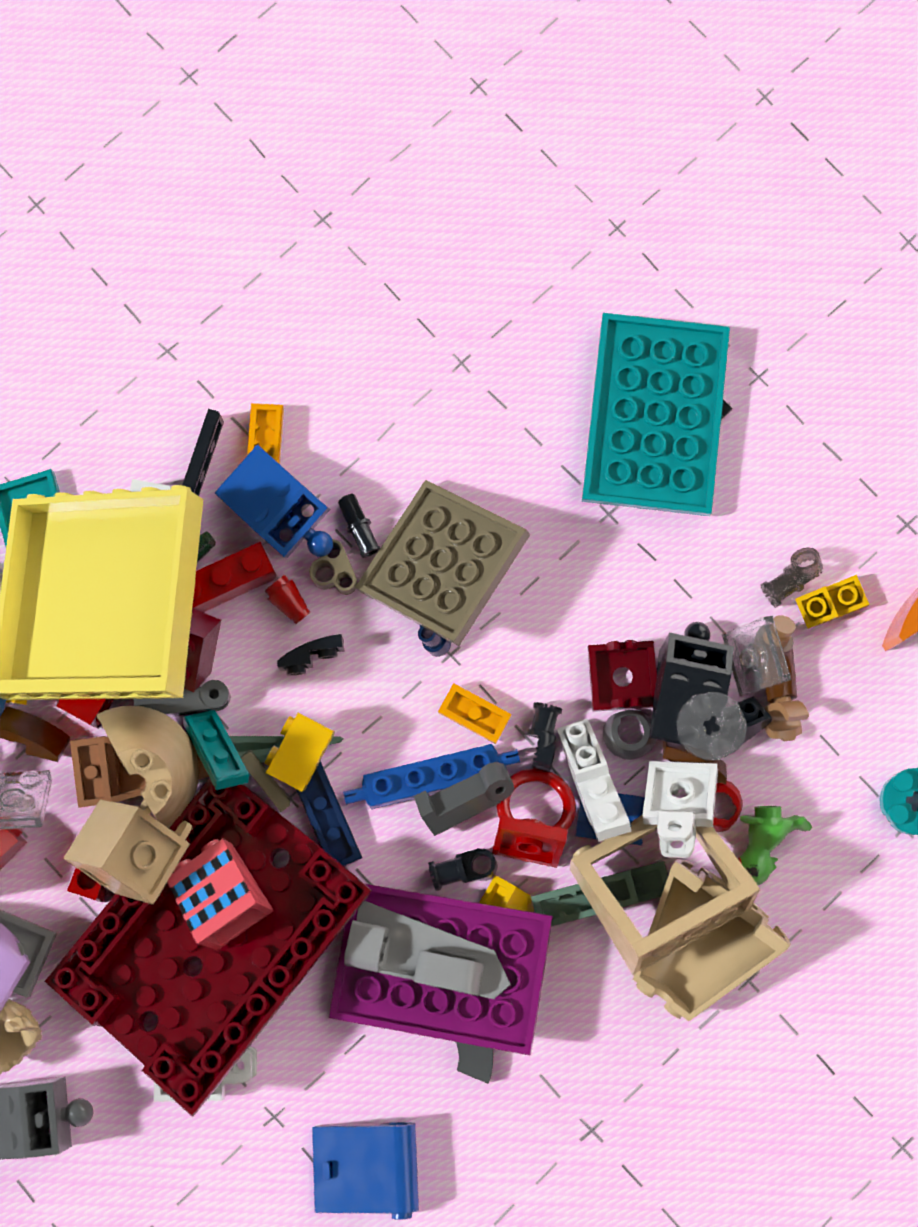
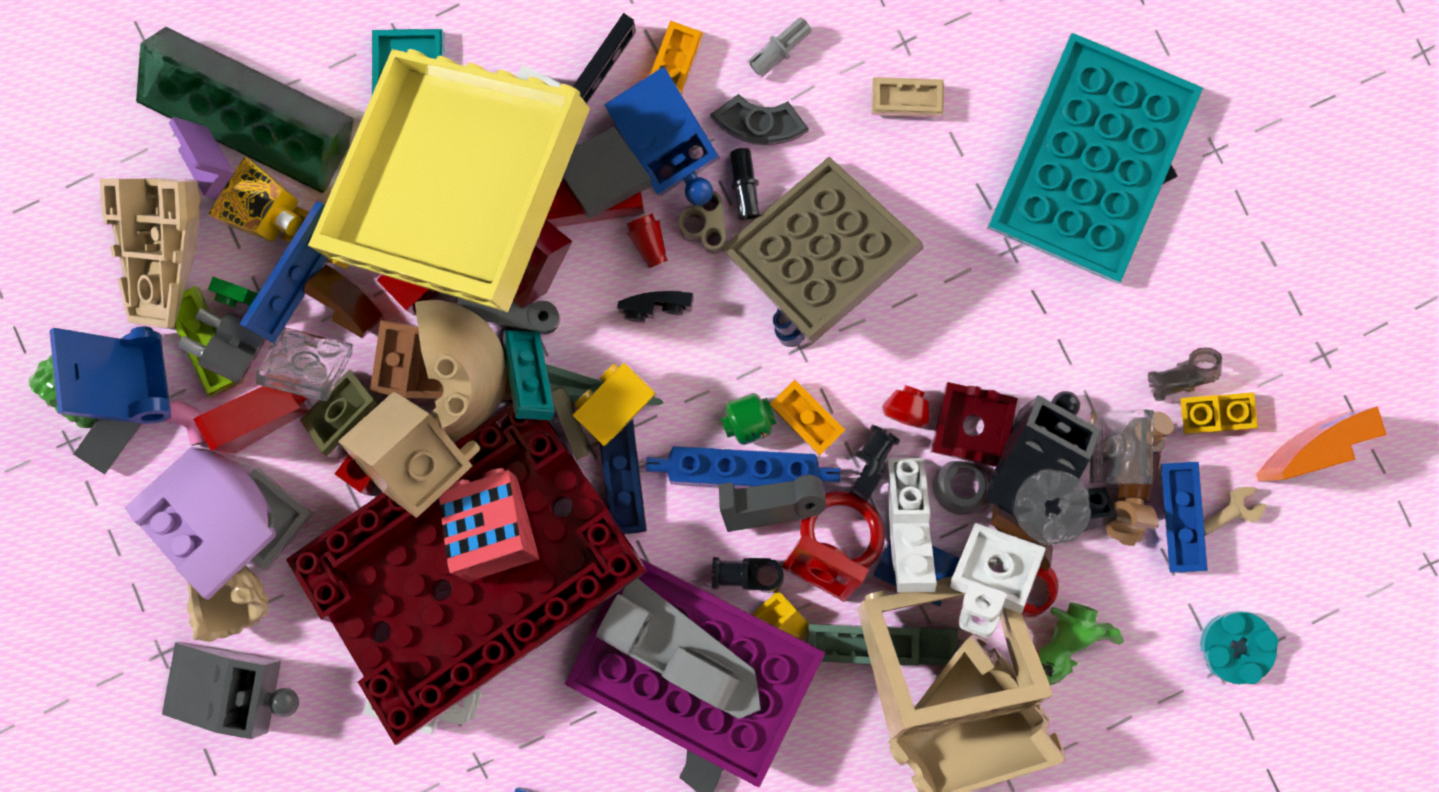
camera: 20 degrees right, 5 degrees up
(52, 841) = (342, 411): none -> olive slope
(232, 552) = (604, 173): none -> dark grey tile
(353, 398) = (779, 47): none -> light grey axle
(355, 470) = (759, 124): none -> dark grey tile
(423, 730) = (748, 418): none -> green head
(478, 408) = (907, 97): none -> tan plate
(560, 678) = (908, 407): none -> red cone
(830, 701) = (1184, 517): none -> blue plate
(871, 684) = (1234, 510): none -> tan bar

